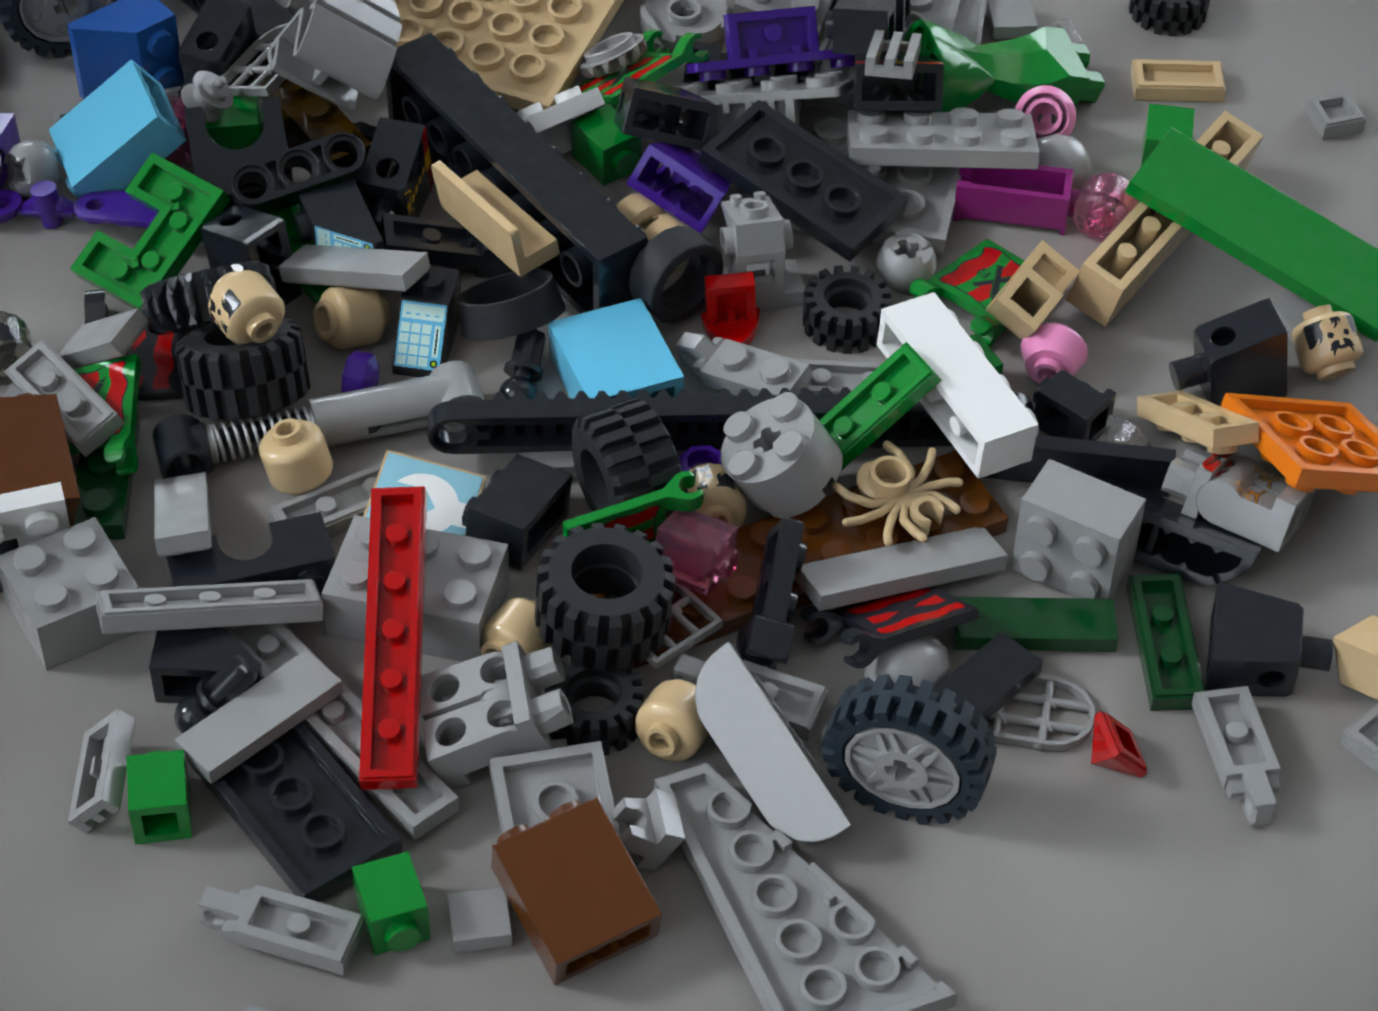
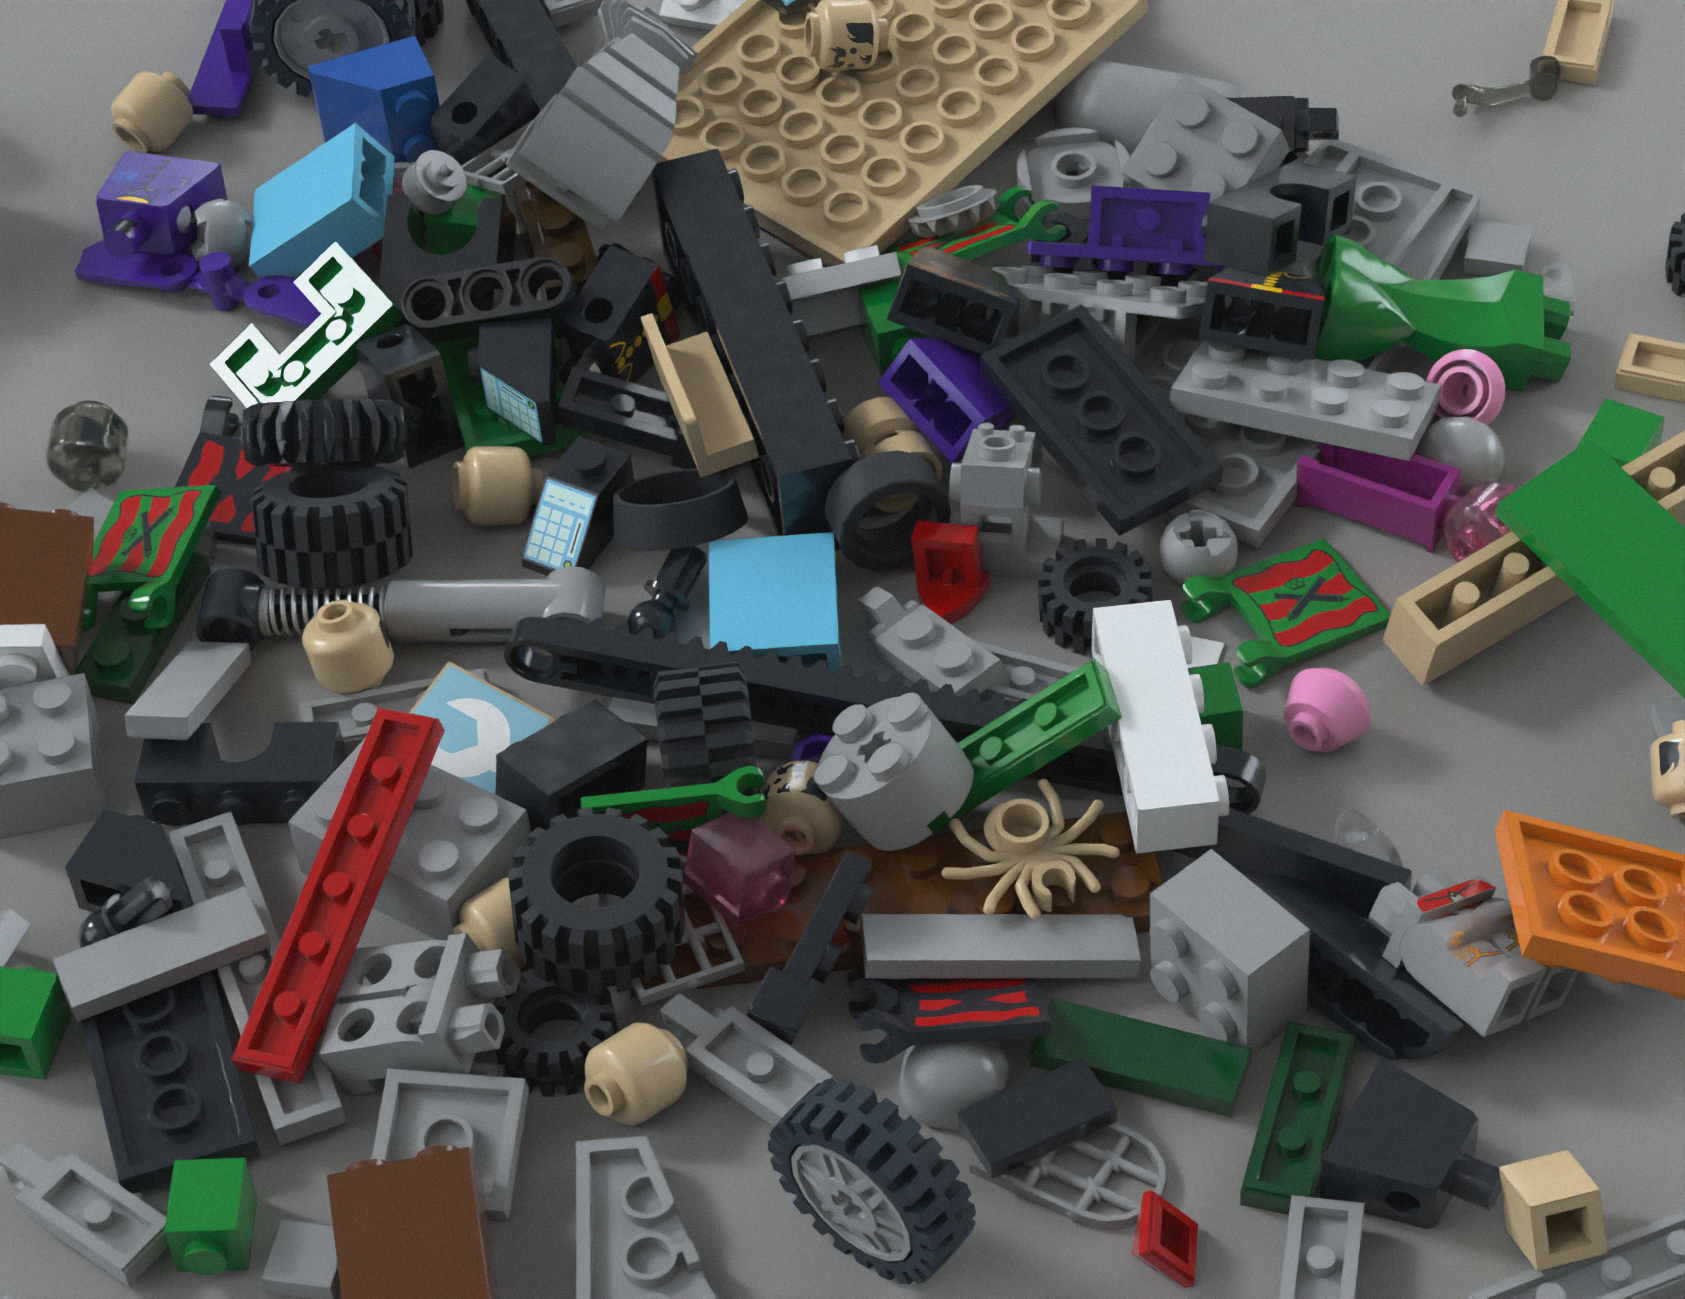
camera: 25 degrees right, 0 degrees up
(84, 413) = (124, 522): light grey tile -> none
(104, 339) = (193, 460): light grey tile -> none
(208, 606) = (159, 808): light grey tile -> none
(246, 307) = (335, 455): tan head -> none
(355, 267) = (509, 428): light grey tile -> none
(360, 371) = (472, 558): dark purple tile -> none
(652, 827) = (547, 1199): light grey tile -> none
(766, 751) = (718, 1139): light grey brick -> none
(893, 48) = (1247, 270): light grey tile -> none
(1032, 291) = (1324, 622): tan brick -> none
(1072, 407) = (1315, 786): black brick -> none
(1198, 421) = (1460, 839): tan plate -> none
(1237, 355) = (1558, 764): black torso -> none

